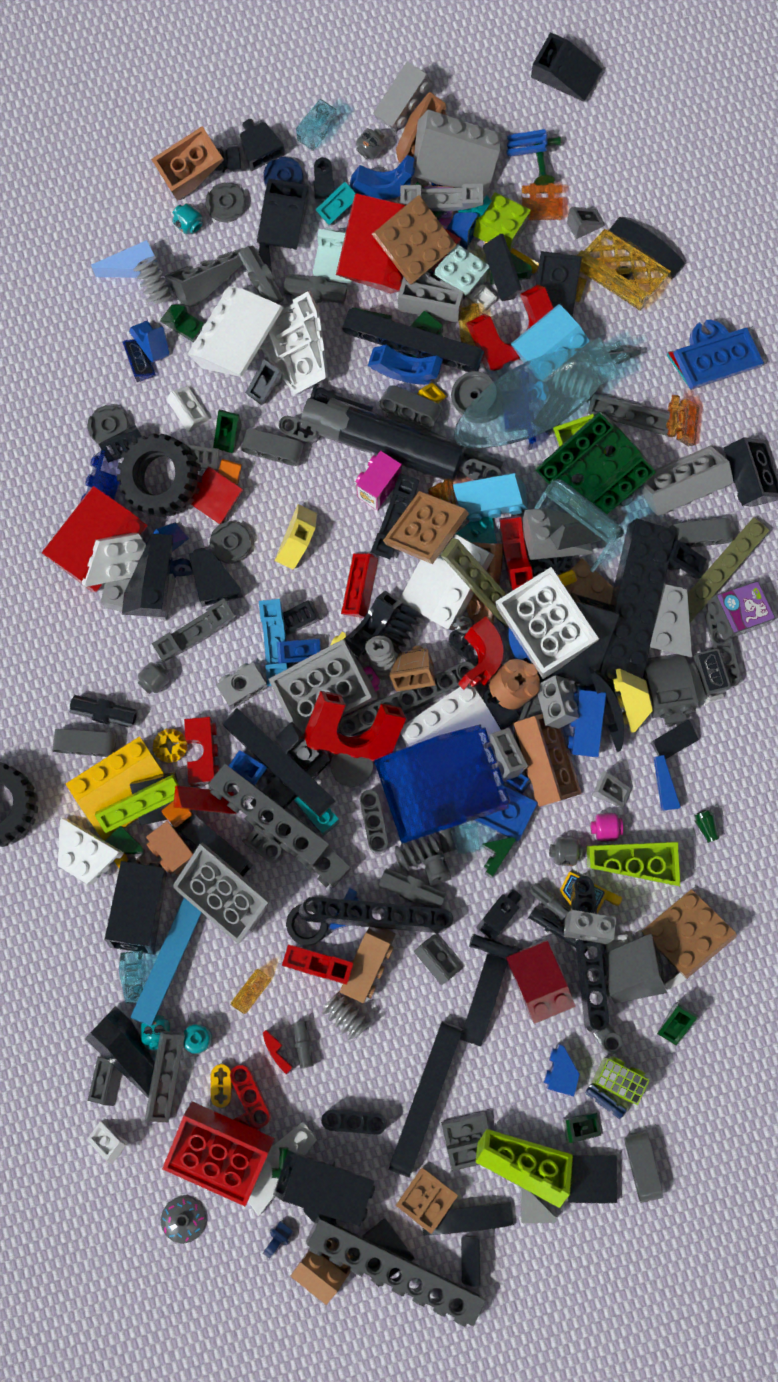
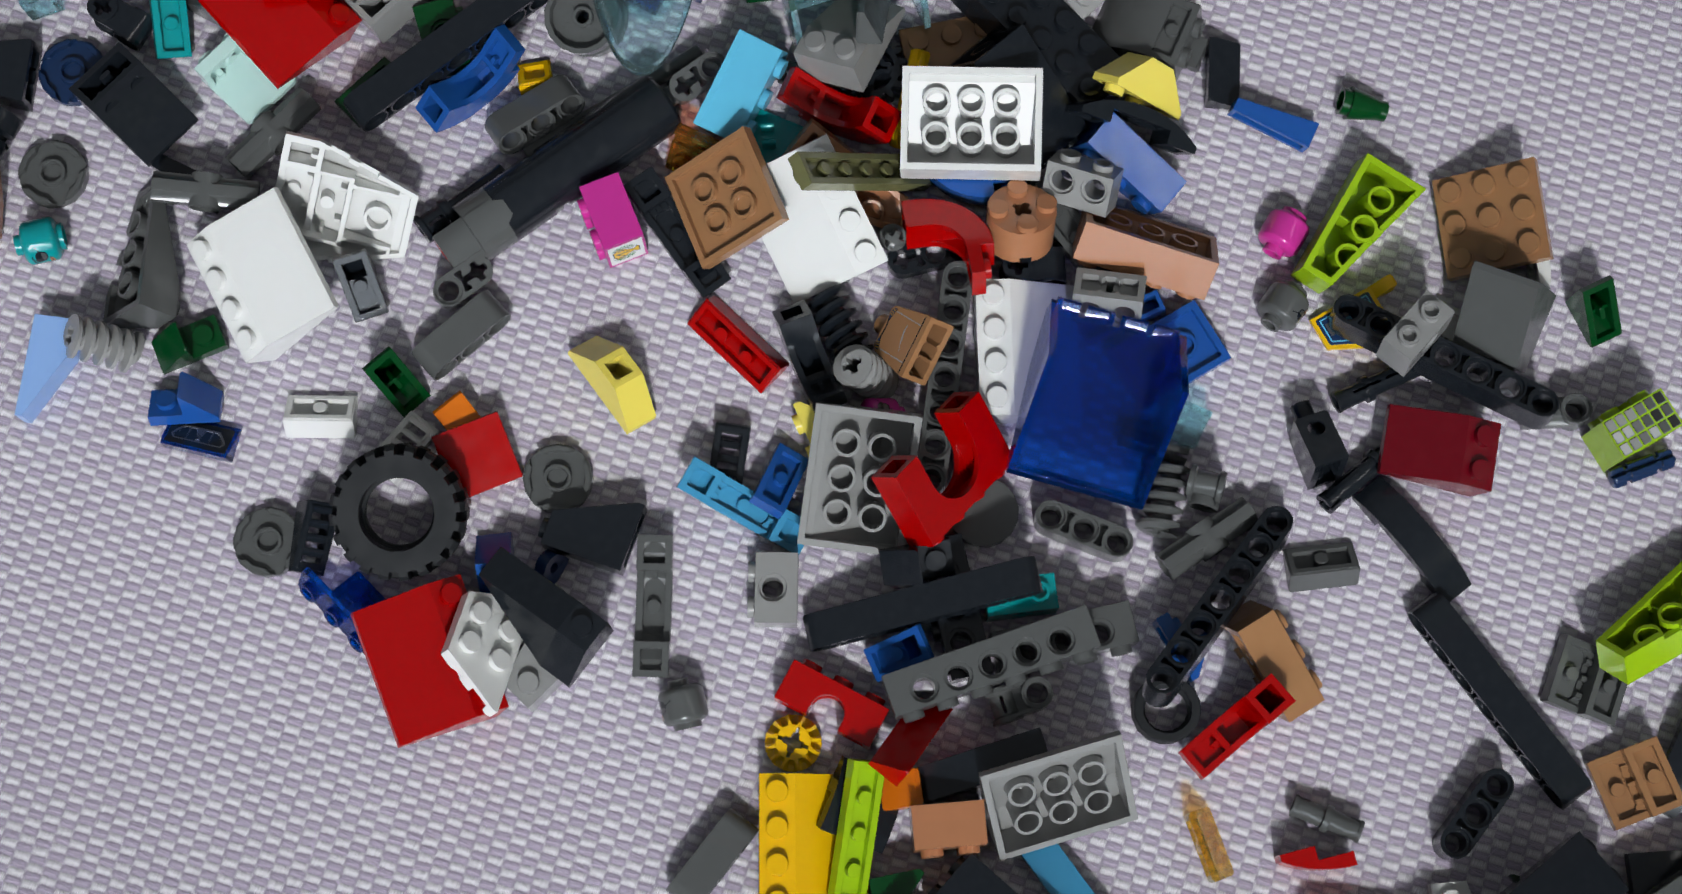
camera: 60 degrees left, 0 degrees up
(103, 711) = (684, 805): black piece -> none
(345, 1016) = (1325, 734): light grey piece -> none
(500, 849) = (1229, 388): dark green slope -> none
(549, 901) = (1335, 369): dark grey axle -> none
(563, 1073) = (1573, 498): blue slope -> none
(581, 1127) = (1657, 523): dark green slope -> none
(611, 790) = (1235, 197): light grey slope -> none

